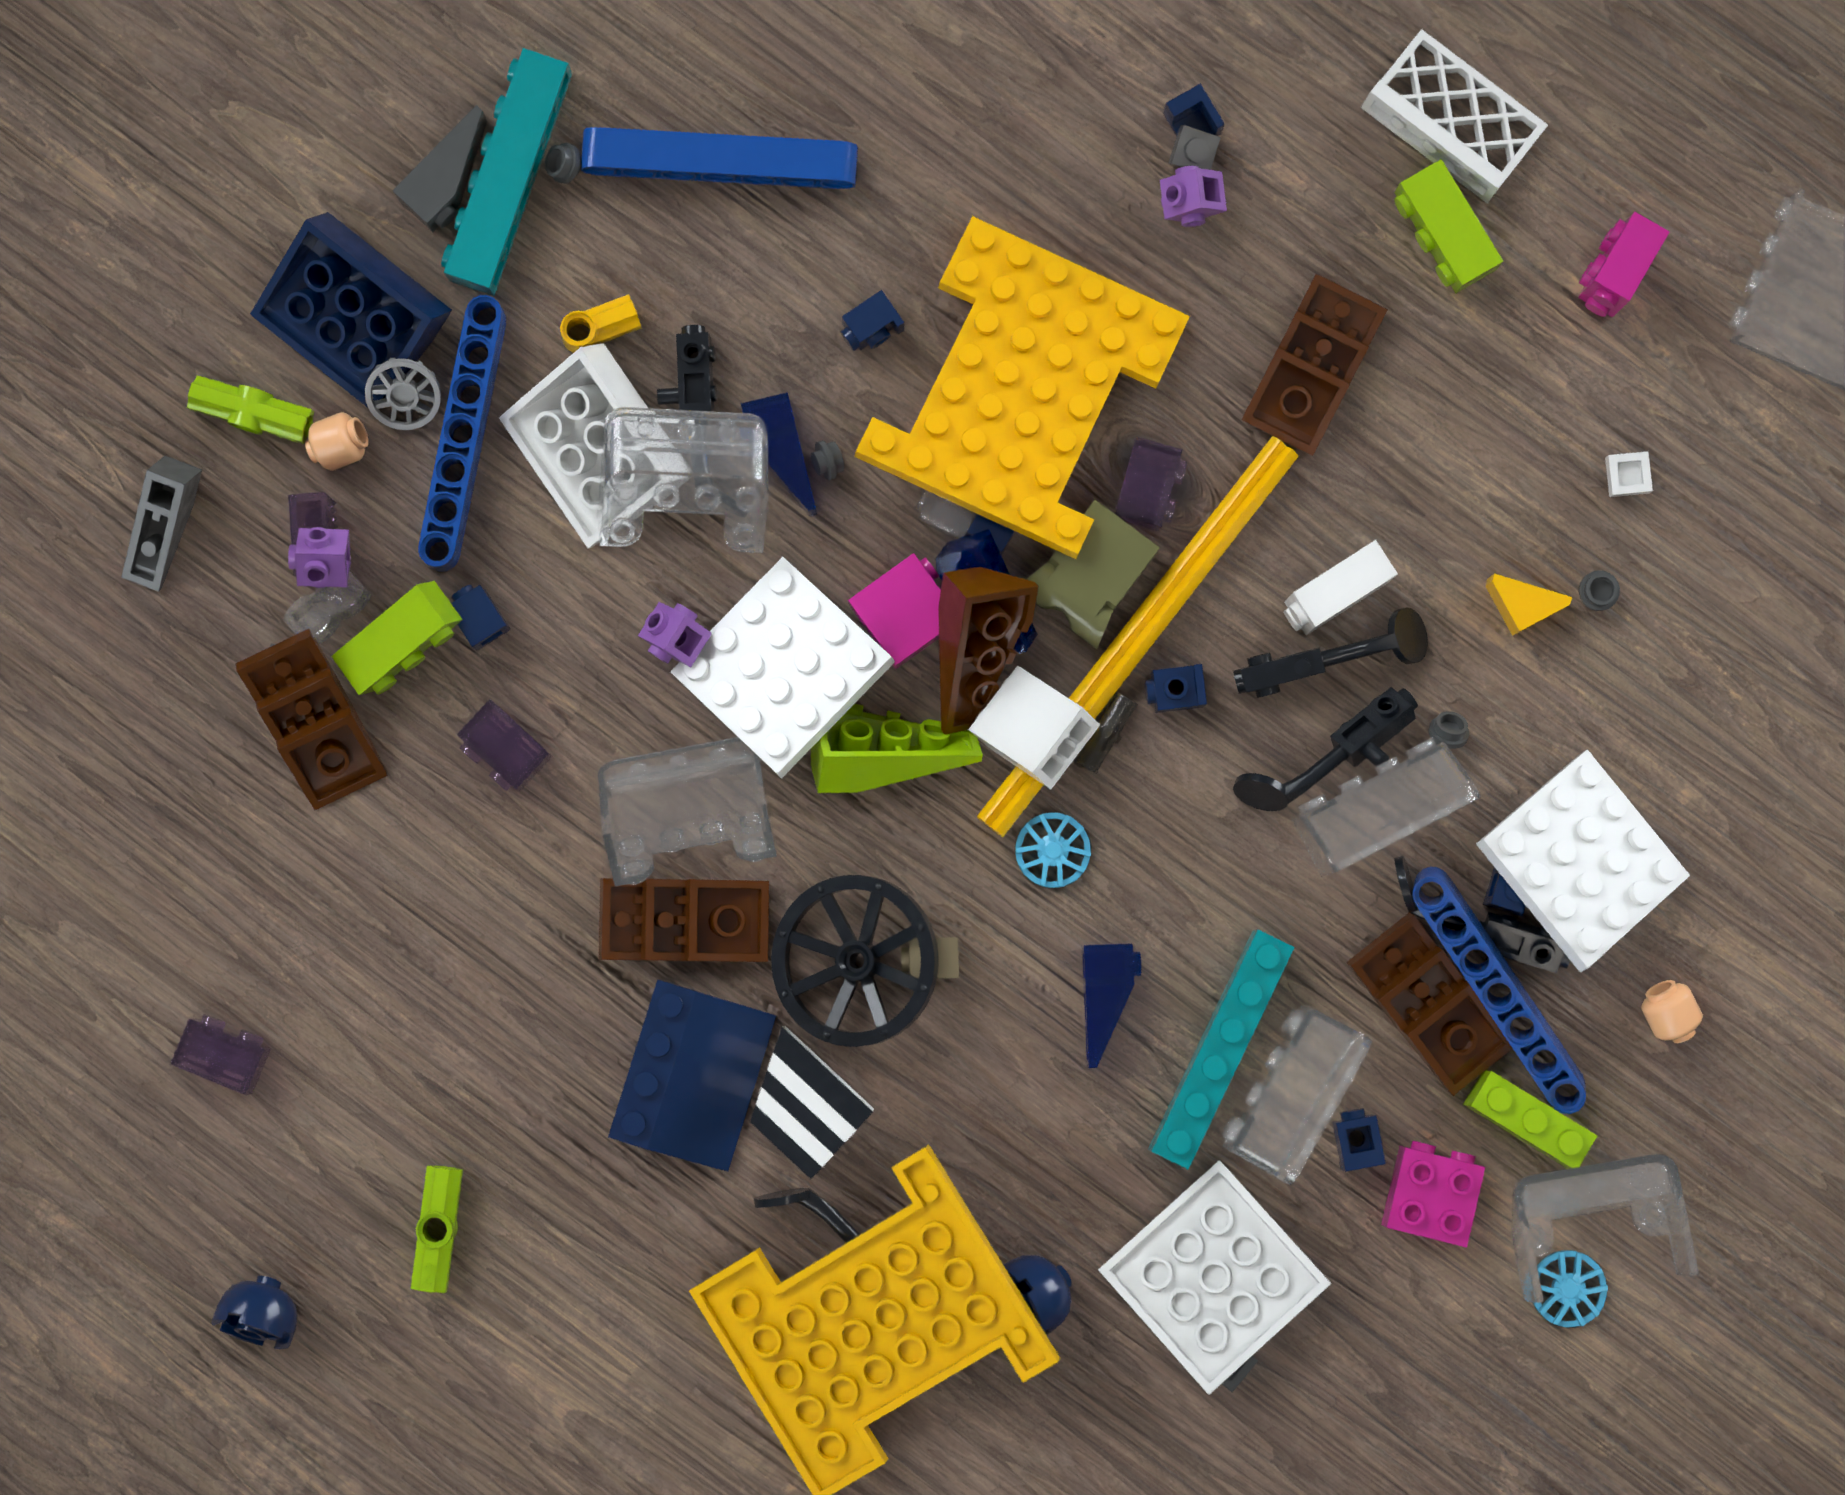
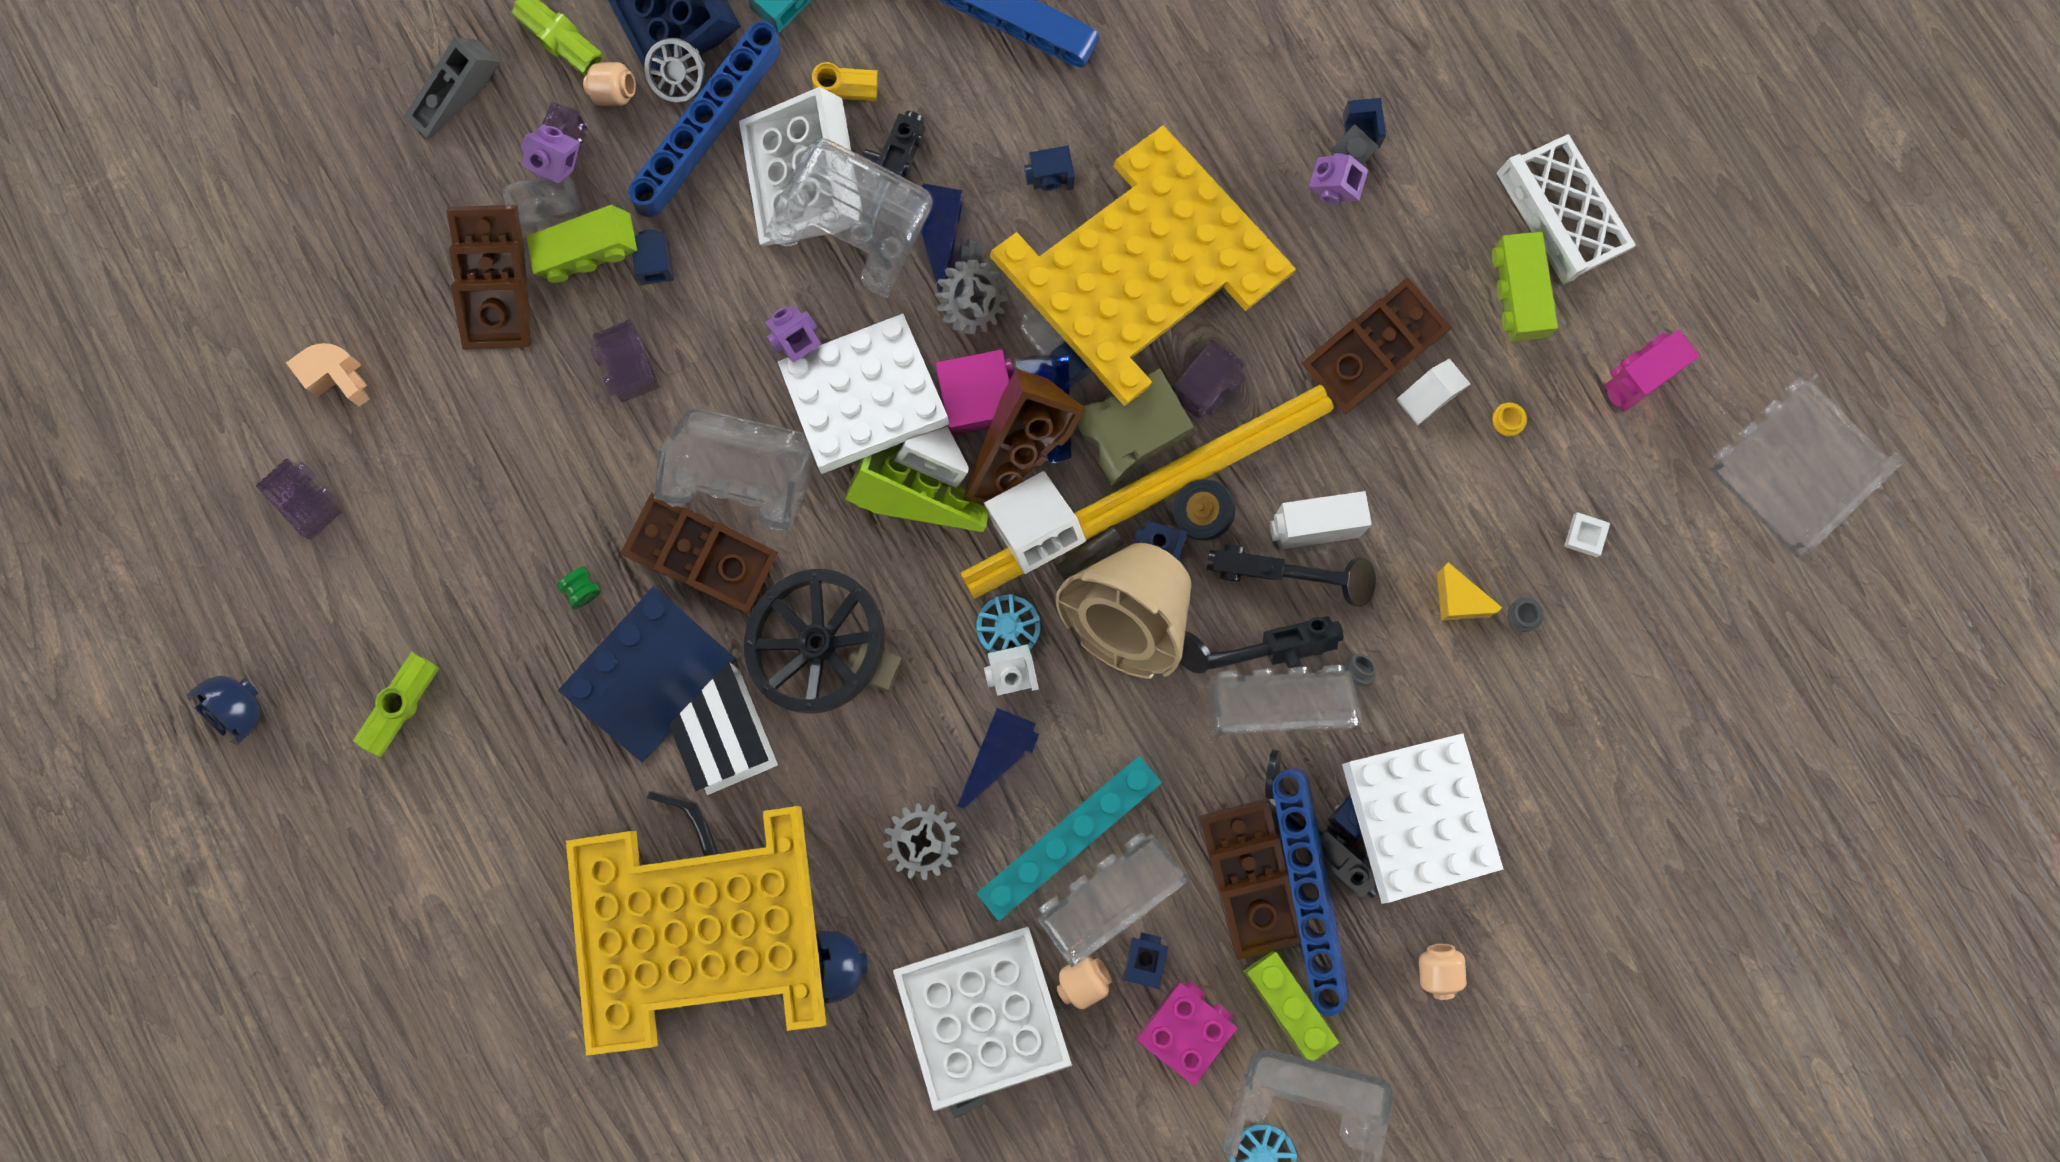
camera: 25 degrees right, 5 degrees down
(177, 895) = (326, 365): none -> light nougat brick
(572, 1016) = (578, 588): none -> green wheel
(850, 506) = (957, 293): none -> light grey gear
(894, 701) = (935, 456): none -> white slope
(1079, 897) = (1015, 661): none -> white brick
(1085, 1120) = (943, 848): none -> light grey gear
(1181, 777) = (1130, 609): none -> tan cone
(1208, 630) = (1204, 509): none -> black wheel
(1307, 1194) = (1084, 983): none -> light nougat head
(1397, 387) = (1433, 391): none -> white slope
(1492, 382) = (1509, 419): none -> yellow plate

